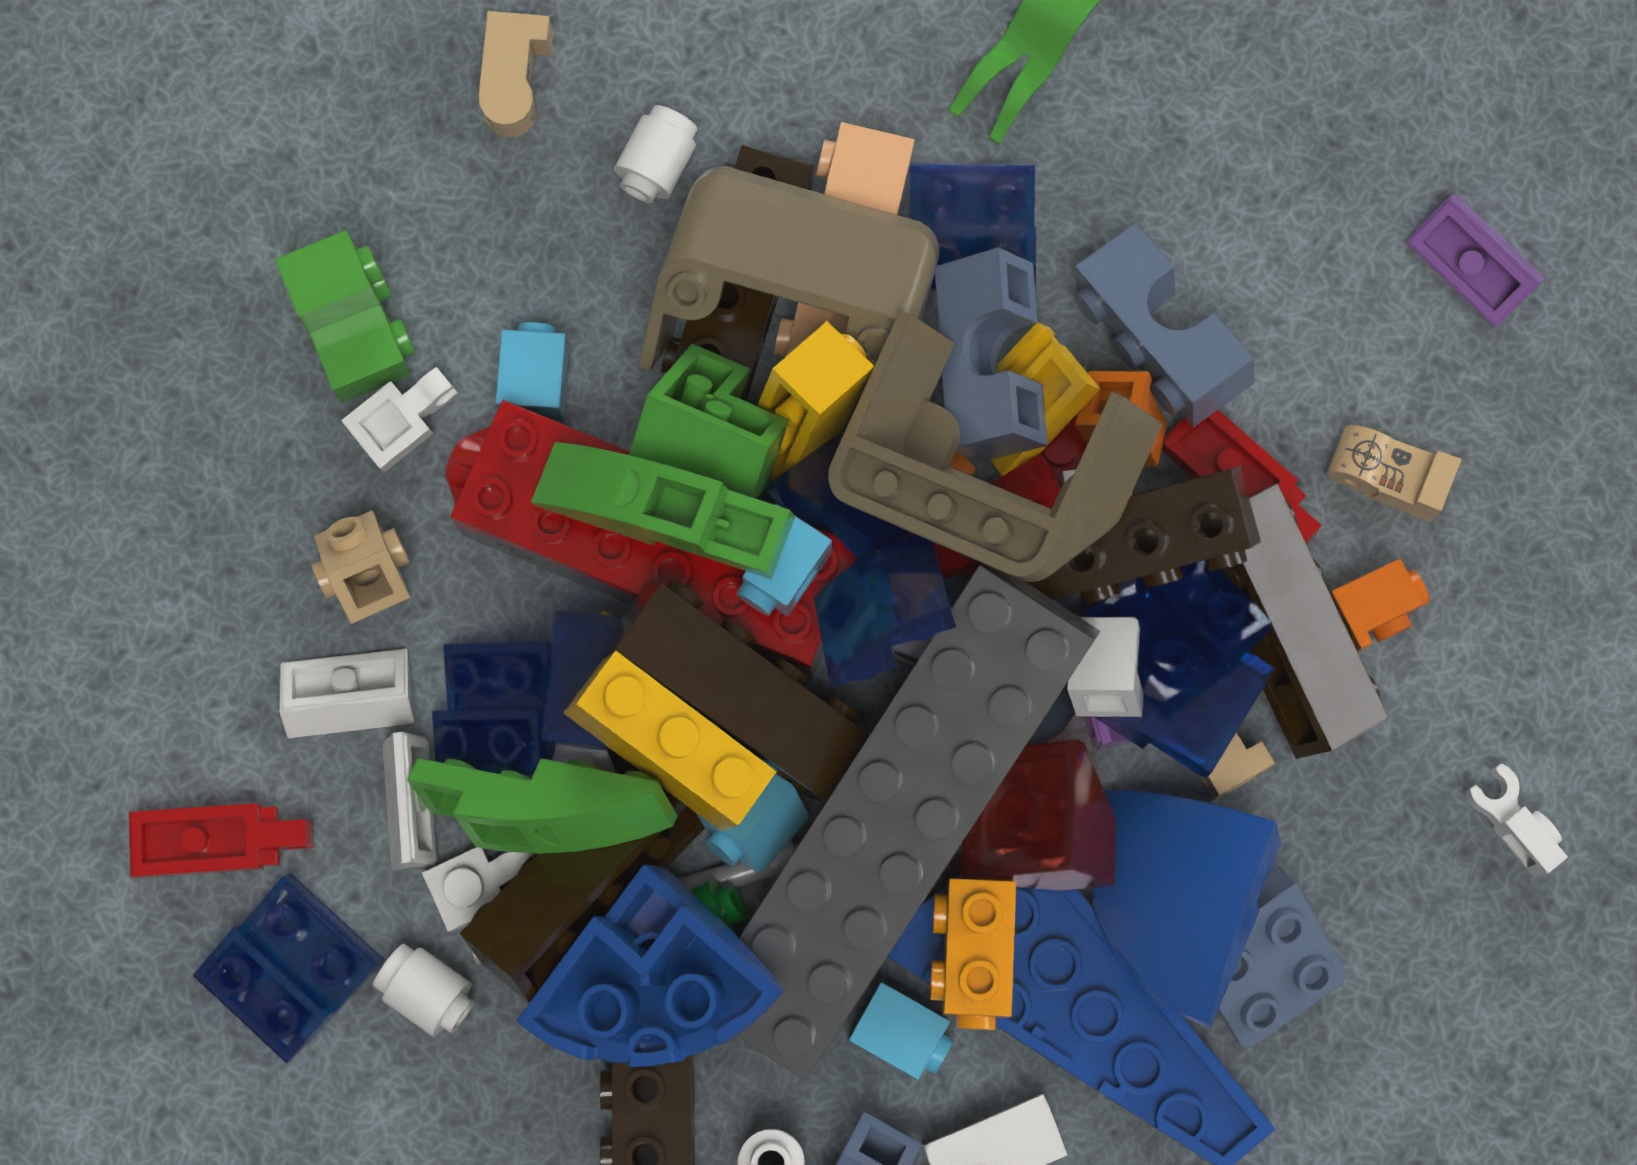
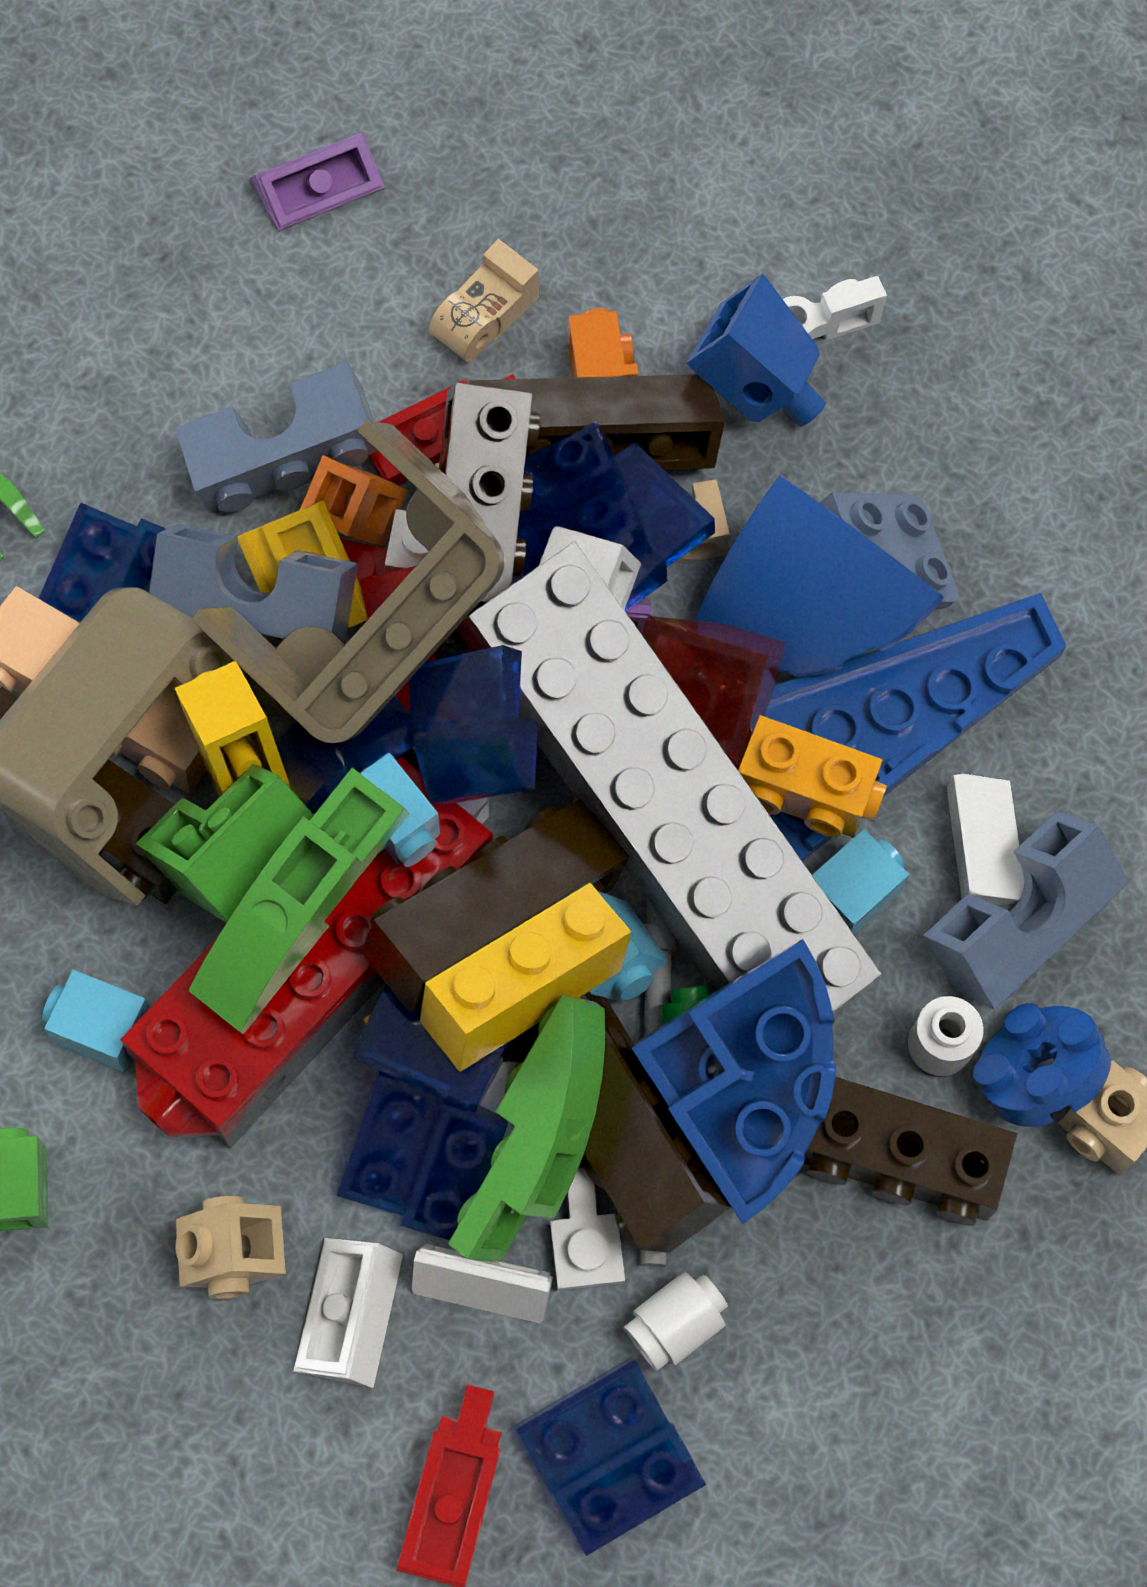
camera: 75 degrees left, 10 degrees down
(393, 423) = (92, 1174): white plate -> none
(1429, 762) = (759, 356): none -> blue torso

